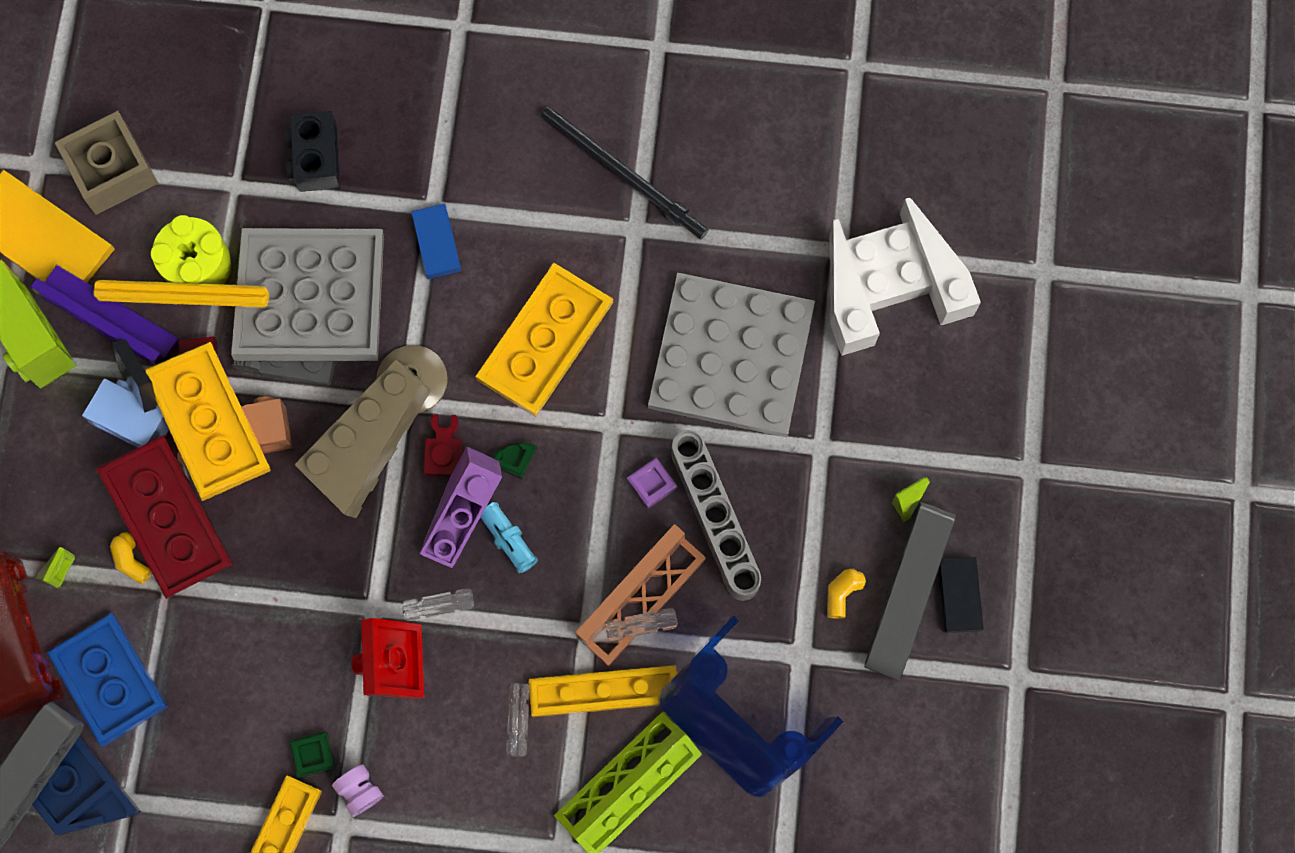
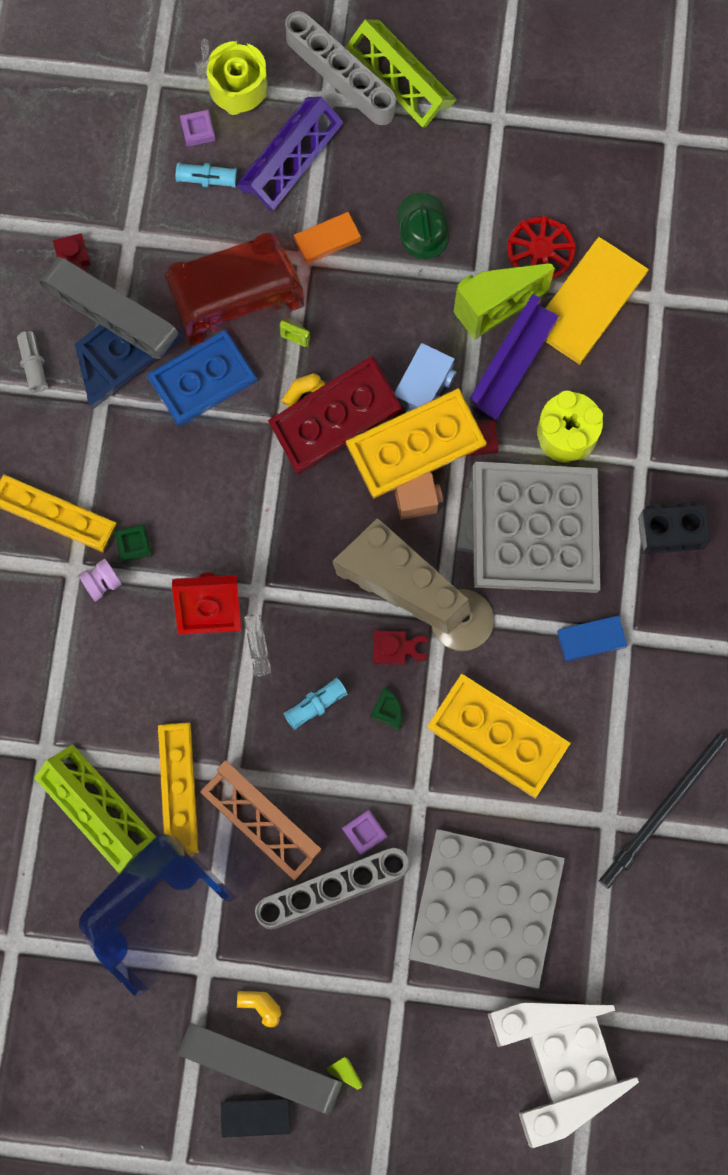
camera: 90 degrees right, 0 degrees up
(106, 163) = (654, 351): dark tan brick -> none
(134, 375) = (454, 382): black tile -> none
(181, 293) = (531, 419): yellow axle -> none
(461, 506) = (343, 662): medium lavender slope -> none
(517, 720) = (155, 713): clear axle -> none
(641, 624) = (233, 820): clear axle -> none

